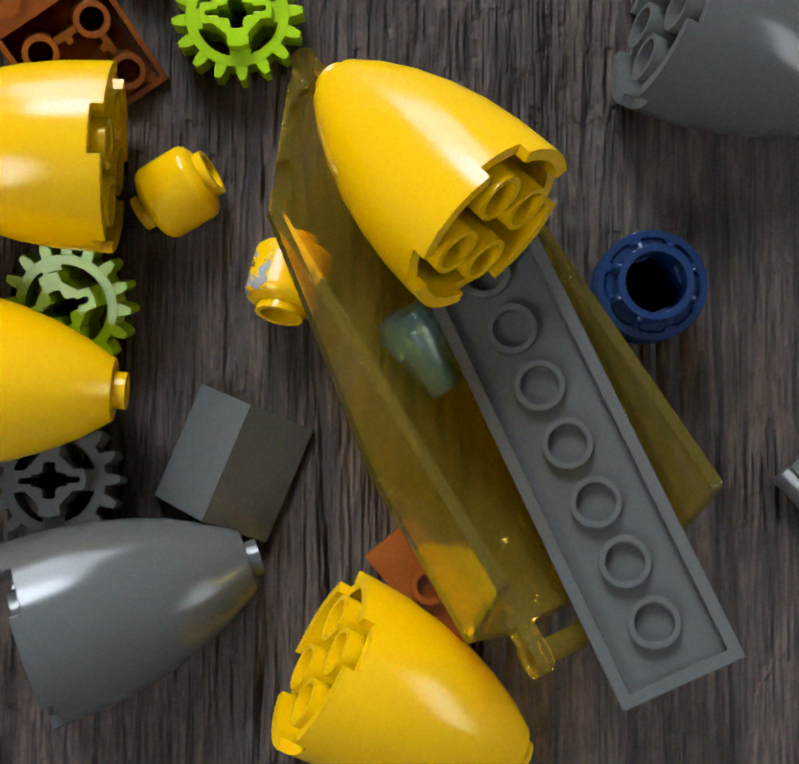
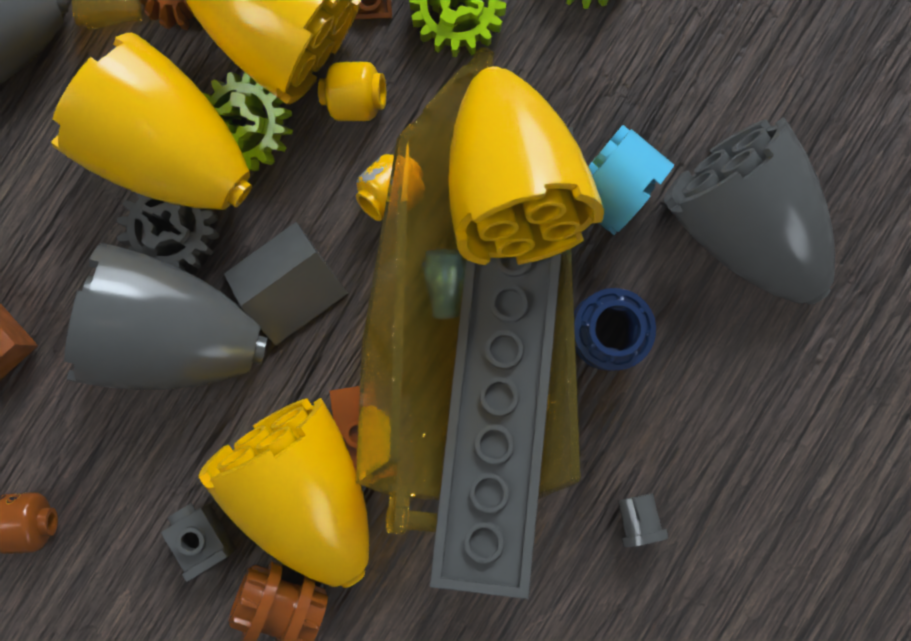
camera: 25 degrees right, 0 degrees up
(557, 100) = (626, 176): none -> medium azure brick

